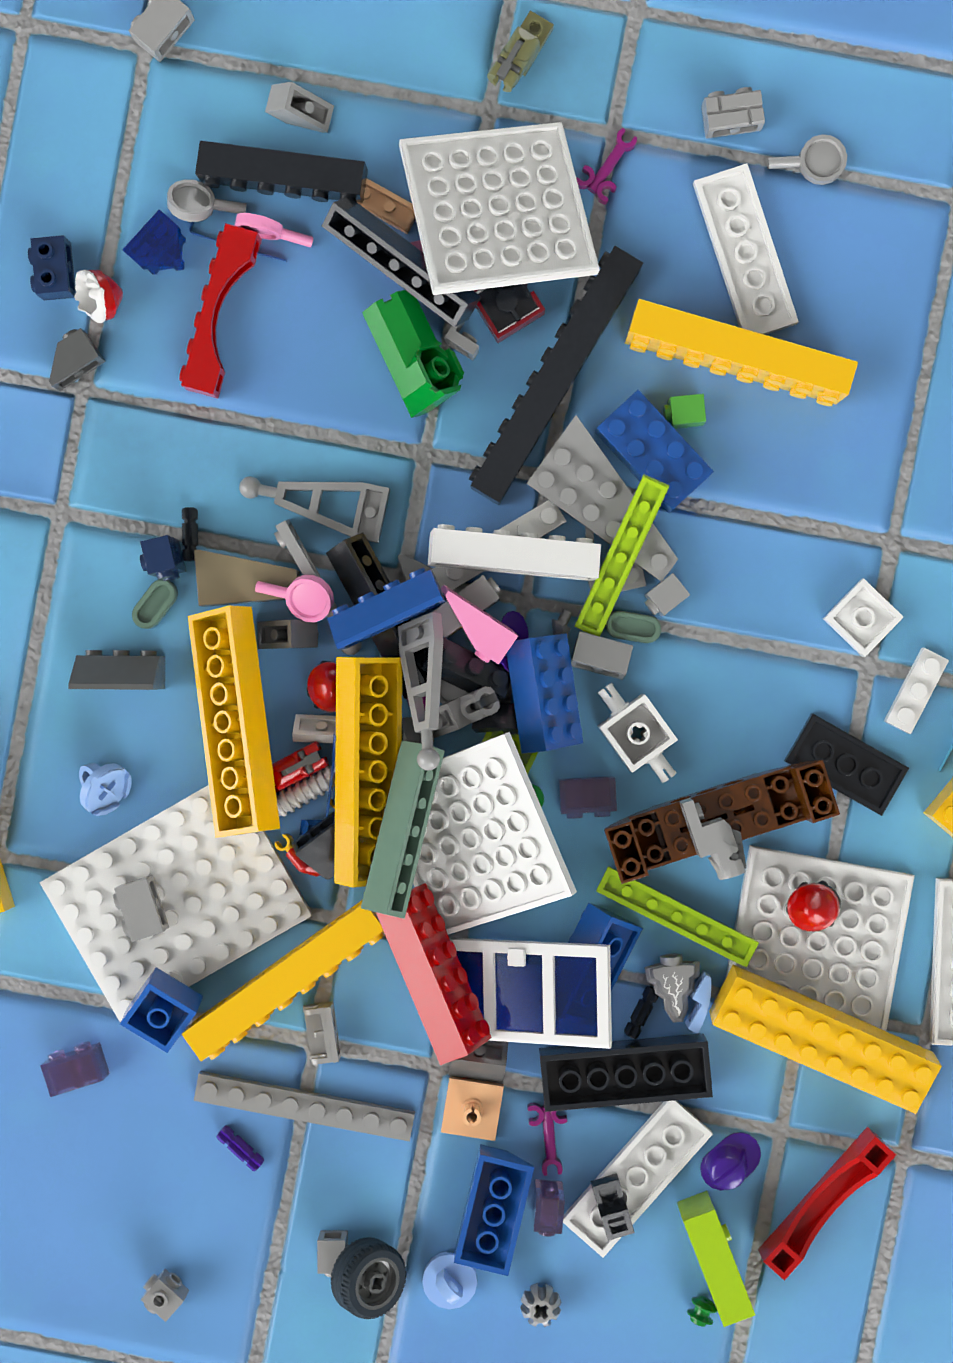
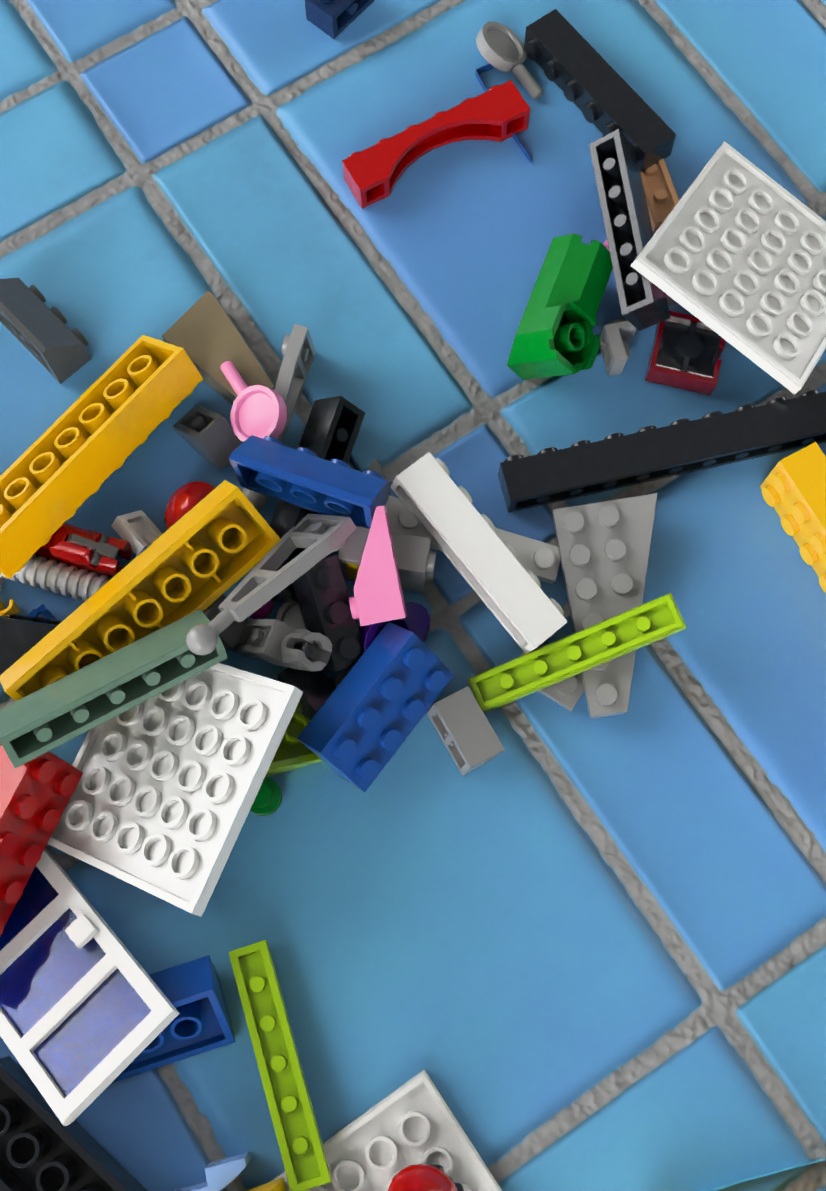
camera: 40 degrees right, 15 degrees down
(73, 359) = (279, 72): dark grey slope -> none
(97, 294) = (353, 45): white hair -> none
(154, 604) = (130, 309): sand green tile -> none
(157, 245) = (439, 57): clear blue slope -> none
(162, 558) = (177, 270): dark blue brick -> none
(189, 533) = (224, 279): black axle -> none
(271, 229) = (543, 119): bright pink piece -> none
(299, 107) = (662, 60): light grey slope -> none
(369, 511) = (385, 408): light grey plate -> none
(560, 626) = (459, 666): flat silver bar -> none
(587, 796) = (317, 848): clear purple brick -> none
(633, 627) = (522, 737): sand green tile -> none
(641, 1012) = (143, 1129): black axle -> none
(654, 448) = (703, 576): blue brick -> none
(655, 733) = (404, 850): white brick -> none
(666, 595) = (582, 736): light grey brick -> none
(673, 982) = (205, 1133): light grey rock -> none
(685, 411) = (762, 590): bright green brick -> none
(716, 840) = (395, 1020): light grey plate -> none
(747, 804) = (421, 1004): reddish brown slope -> none
(850, 763) = (602, 1089): black tile -> none
(863, 617) = (758, 952): white plate -> none
(916, 690) = (745, 1084): white plate -> none

